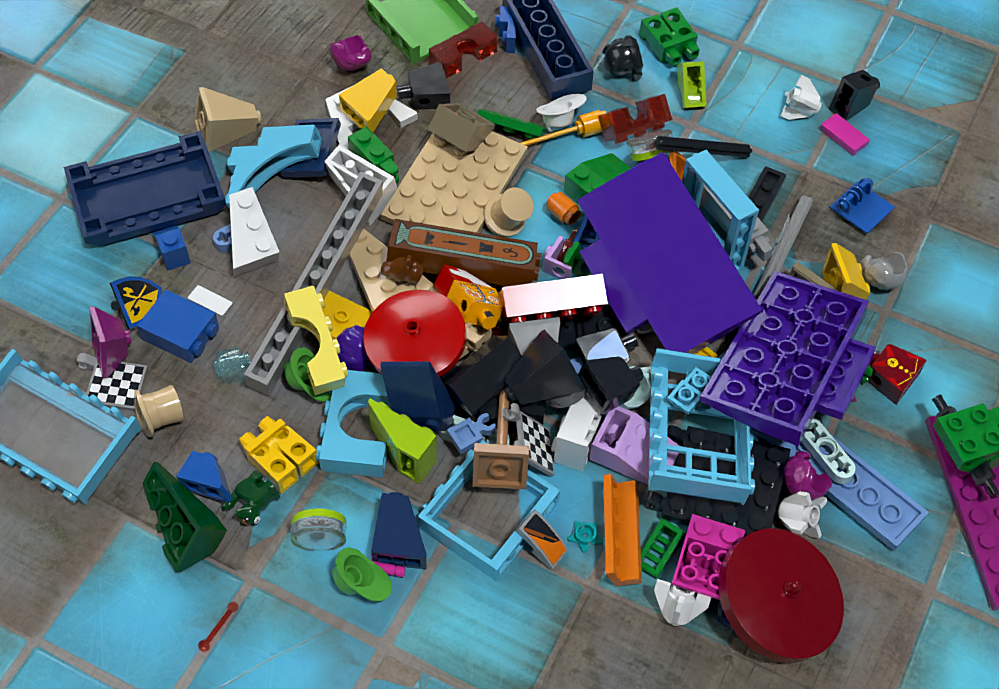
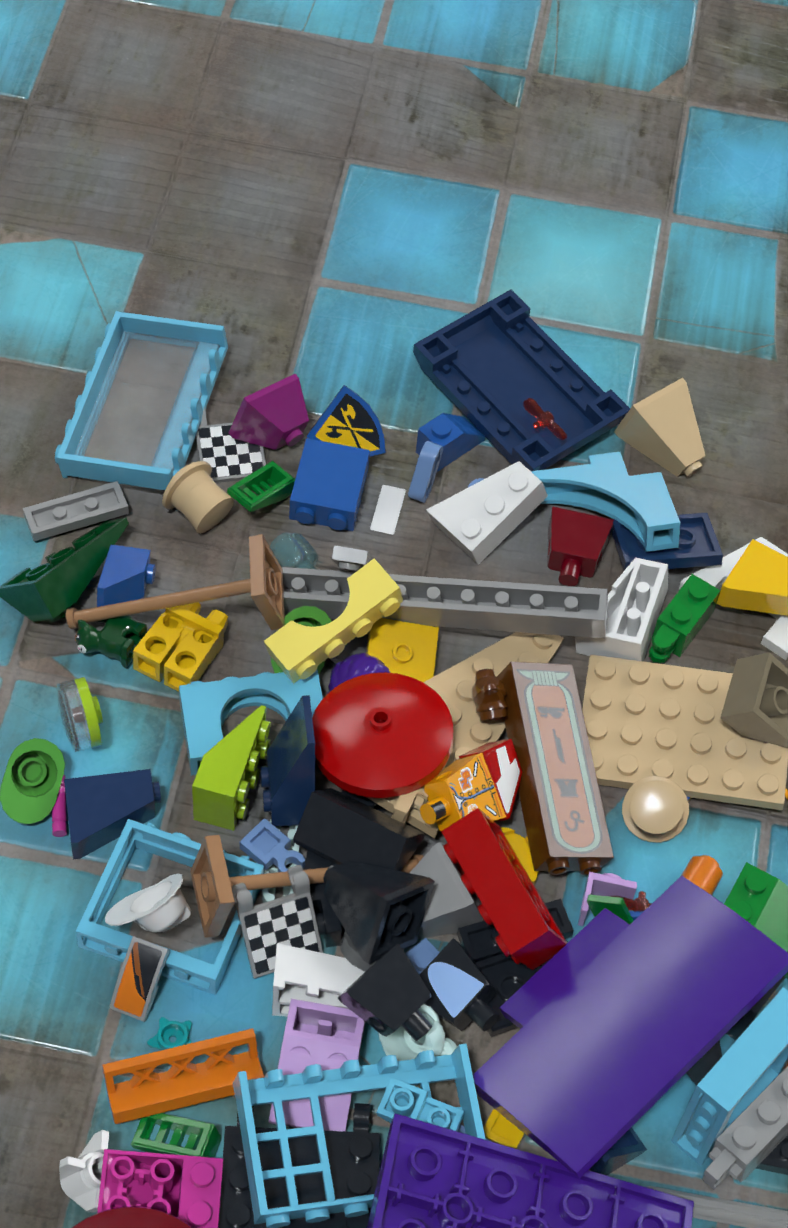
camera: 70 degrees right, 0 degrees up
(126, 499) = (75, 511): none -> light grey plate
(165, 366) = (271, 474): none -> green slope
(184, 181) = (544, 419): none -> clear red piece
(197, 262) = (425, 471): none -> medium blue beam
(260, 321) = (350, 559): none -> plate
(270, 370) = (264, 585): none -> medium nougat tile
(290, 197) = (576, 543): none -> dark red torso
(497, 512) = (153, 908): none -> white piece

